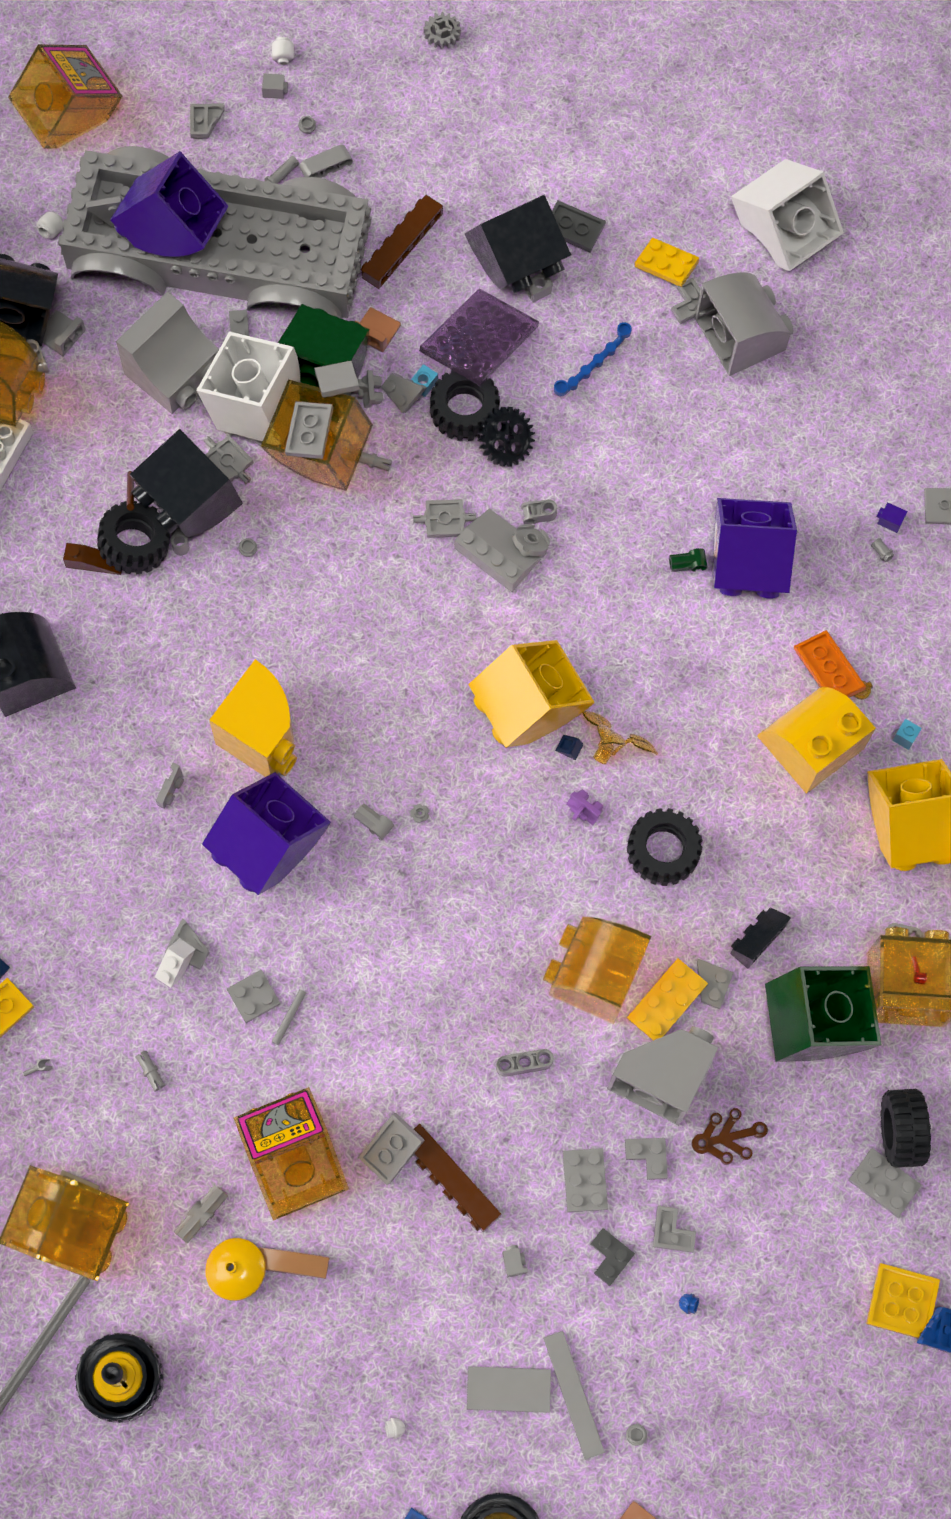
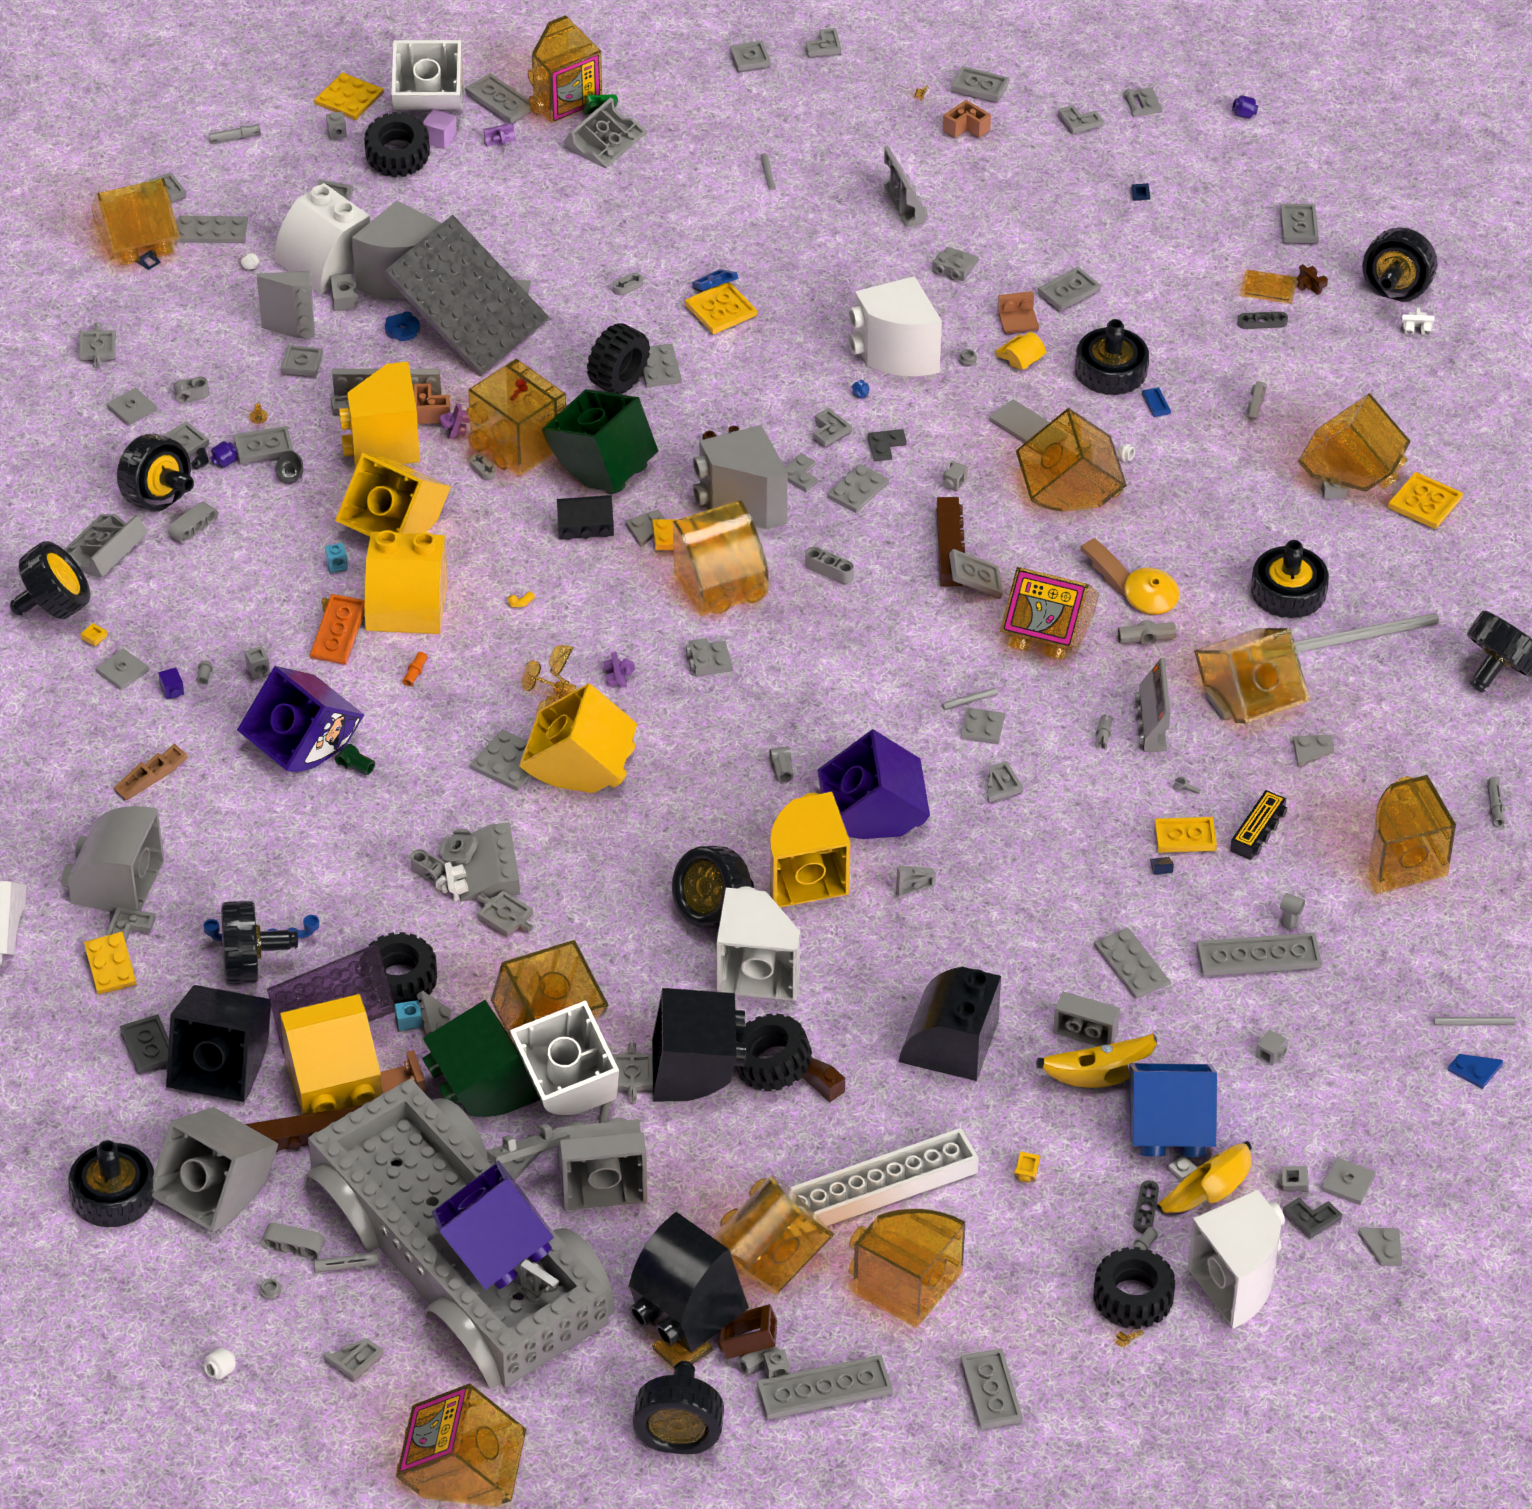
camera: 135 degrees left, 25 degrees down
(50, 225) = (587, 1362): white head -> none
(118, 1115) = (1153, 709): none -> light grey piece
(130, 486) = (739, 1085): reddish brown bar -> none
(175, 962) = (1023, 766): white brick -> none
(214, 305) = (514, 1149): none -> light grey hinge
(218, 605) = (757, 947): none -> white slope
(274, 86) = (263, 1338): light grey brick -> none
(301, 637) = (702, 880): none -> black wheel
(309, 430) = (562, 969): light grey plate -> none
(337, 379) = (501, 985): light grey tile -> none
(412, 1346) = (1071, 465): none -> clear yellow brick
(419, 808) = (741, 748): light grey plate -> none
(422, 158) = (211, 1167): none -> light grey brick
(426, 285) = (331, 1055): none -> yellow slope
(442, 29) = (61, 1278): light grey gear -> none
(478, 106) = (111, 1184): none -> black wheel
(491, 434) = (394, 921): black gear -> none
(508, 511) = (450, 882): none -> white hips
(529, 883) = (708, 657): none -> light grey plate
(573, 1395) = (987, 399): light grey tile -> none
(582, 323) = (245, 942): none -> black wheel
(587, 654) = (502, 759): none -> light grey plate
(595, 1482) = (1022, 350): none -> yellow brick
(664, 871) = (589, 623): black tyre -> none
(710, 1383) = (896, 329): none -> white brick
(728, 817) = (520, 602): none -> yellow arm
(736, 681) = (415, 669): none -> orange pin
(818, 434) = (147, 774): none -> medium nougat slope
(850, 583) = (257, 662): none -> light grey brick

